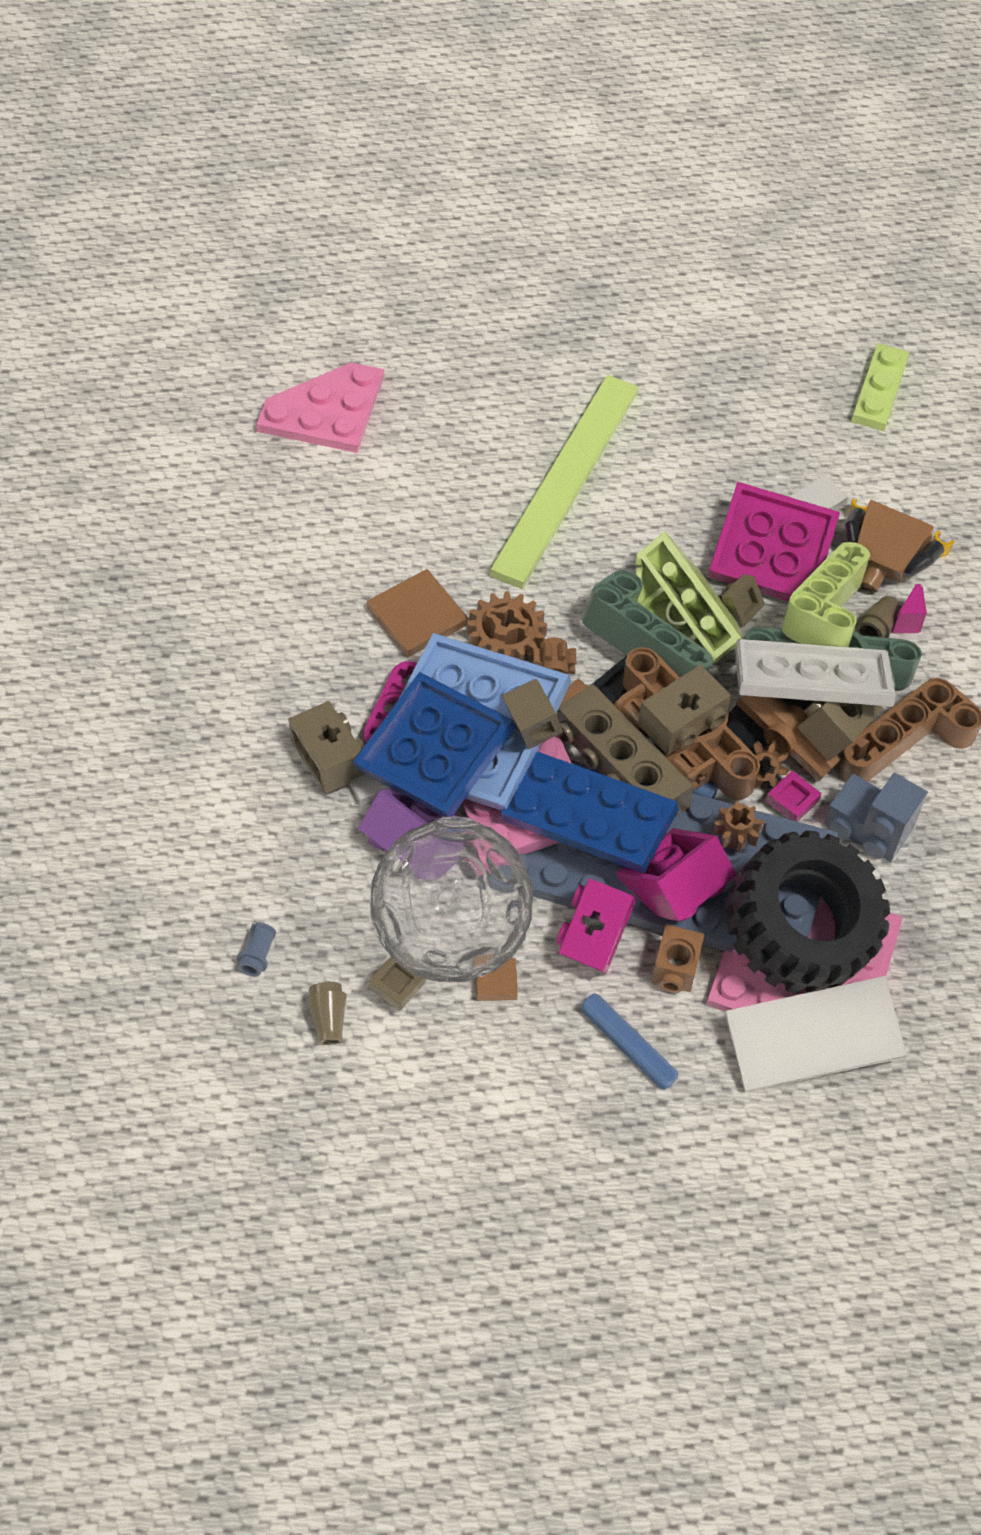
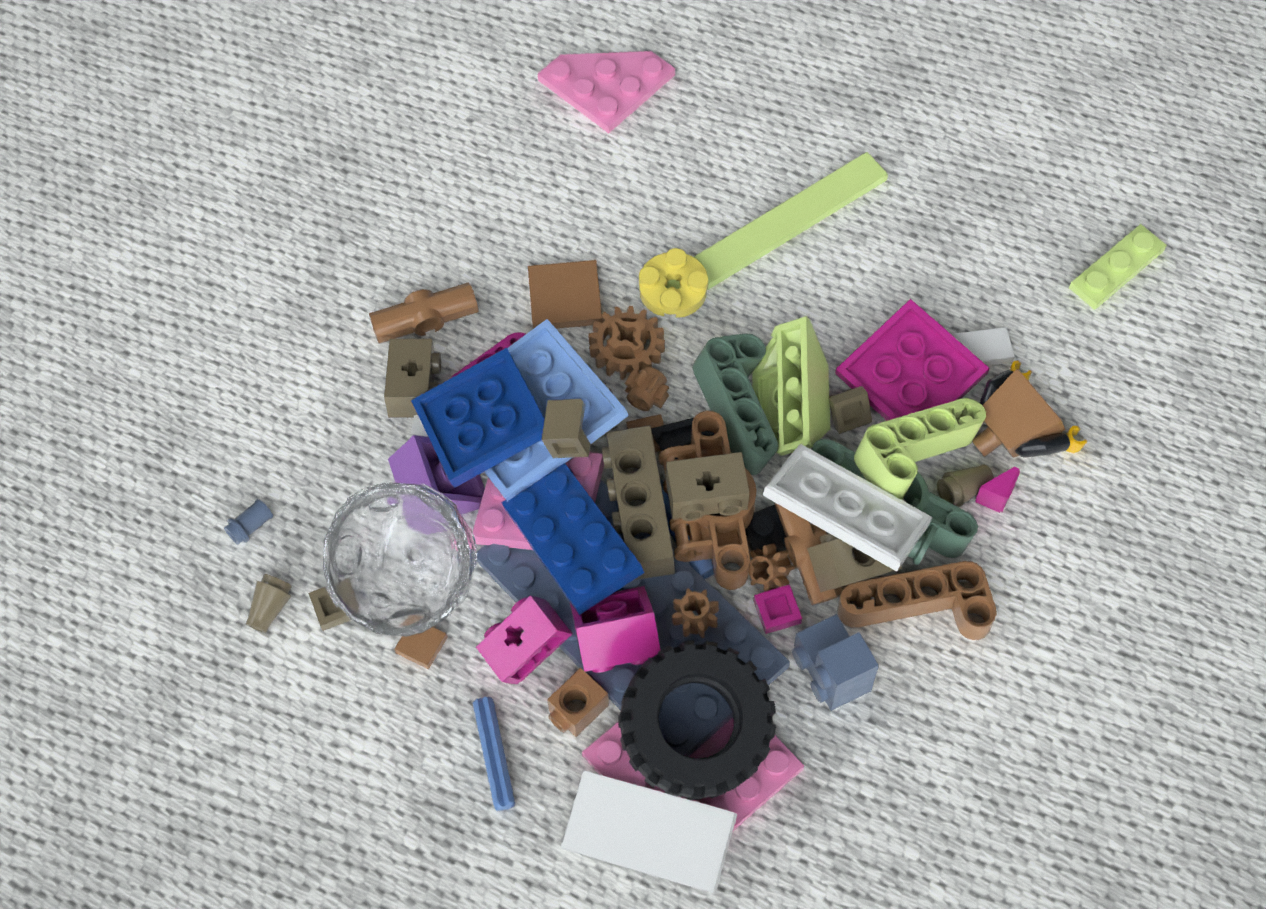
camera: 35 degrees right, 5 degrees up
(296, 684) = (423, 312): none -> medium nougat piece
(521, 542) = (673, 266): none -> light yellow plate

